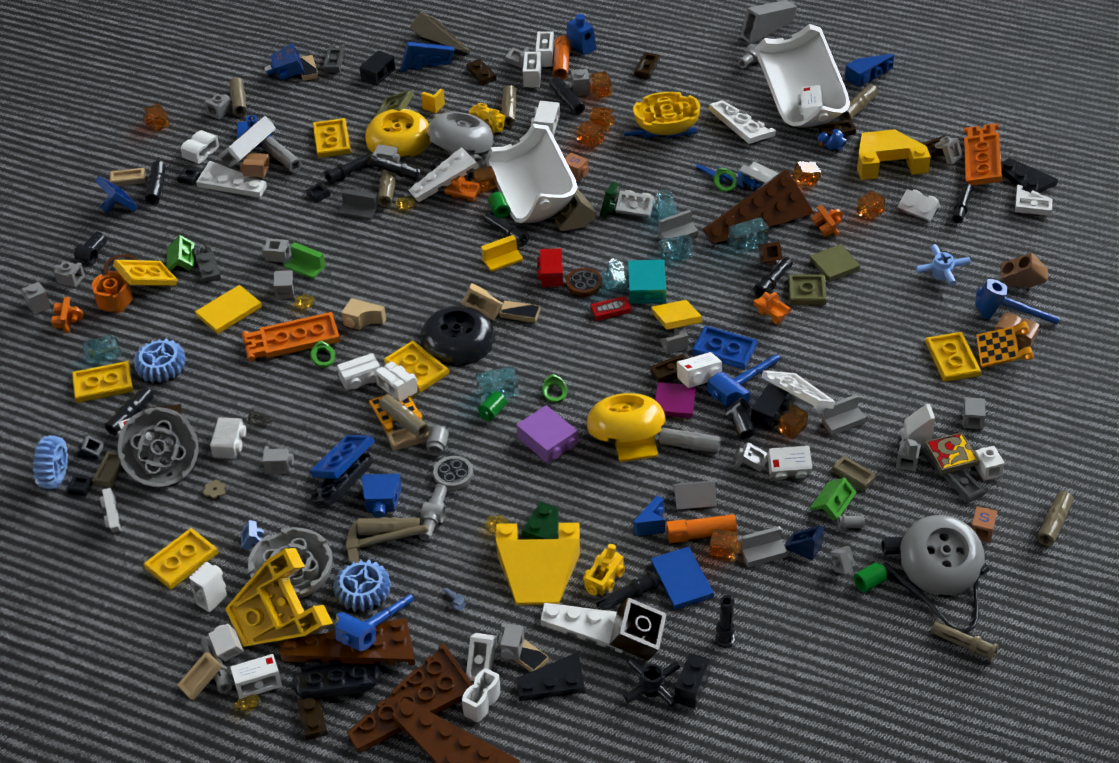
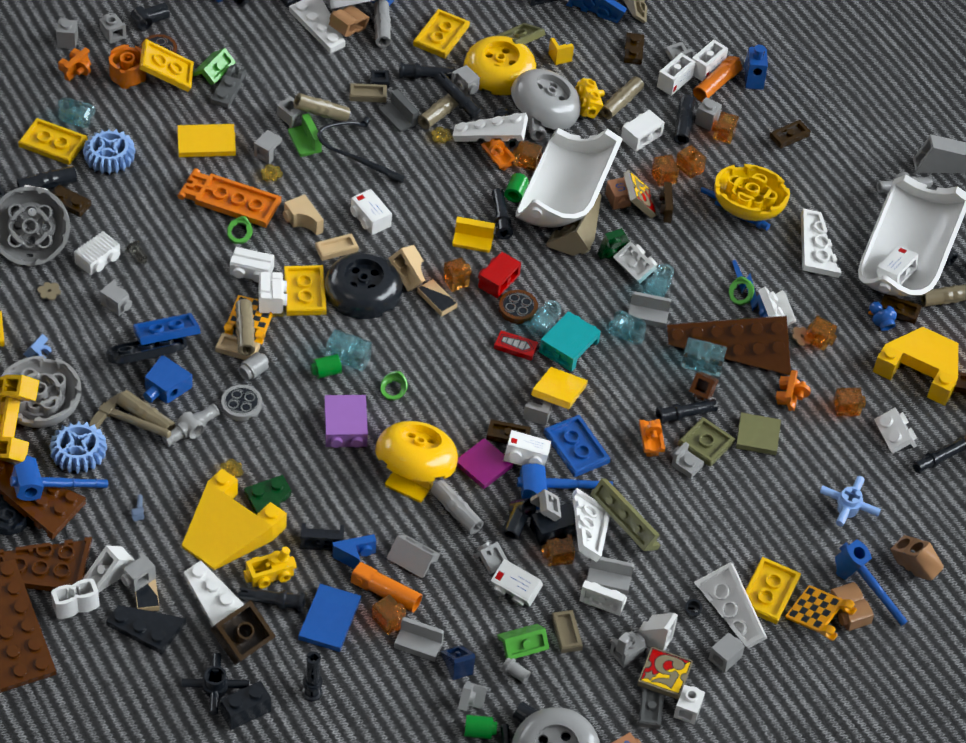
camera: 30 degrees right, 5 degrees up
(300, 232) = (321, 107): none -> dark tan axle
(319, 206) = (368, 92): none -> dark tan tile
(386, 250) = (364, 123): none -> black piece
(408, 322) = (336, 247): none -> tan tile
(410, 282) = (371, 212): none -> white brick
(519, 286) = (457, 274): none -> clear orange brick
(592, 157) = (639, 194): none -> dark tan tile
(614, 153) = (666, 206): none -> dark brown plate
(617, 526) = (319, 538): none -> black hinge
(757, 391) = (548, 504): none -> light grey bracket
(809, 310) = (686, 461): none -> light grey bracket
(813, 367) = (626, 515): none -> olive fence
(857, 432) = (602, 597): none -> white bracket
(919, 396) = (693, 604): none -> black hinge
(941, 378) = (731, 601): none -> white wing

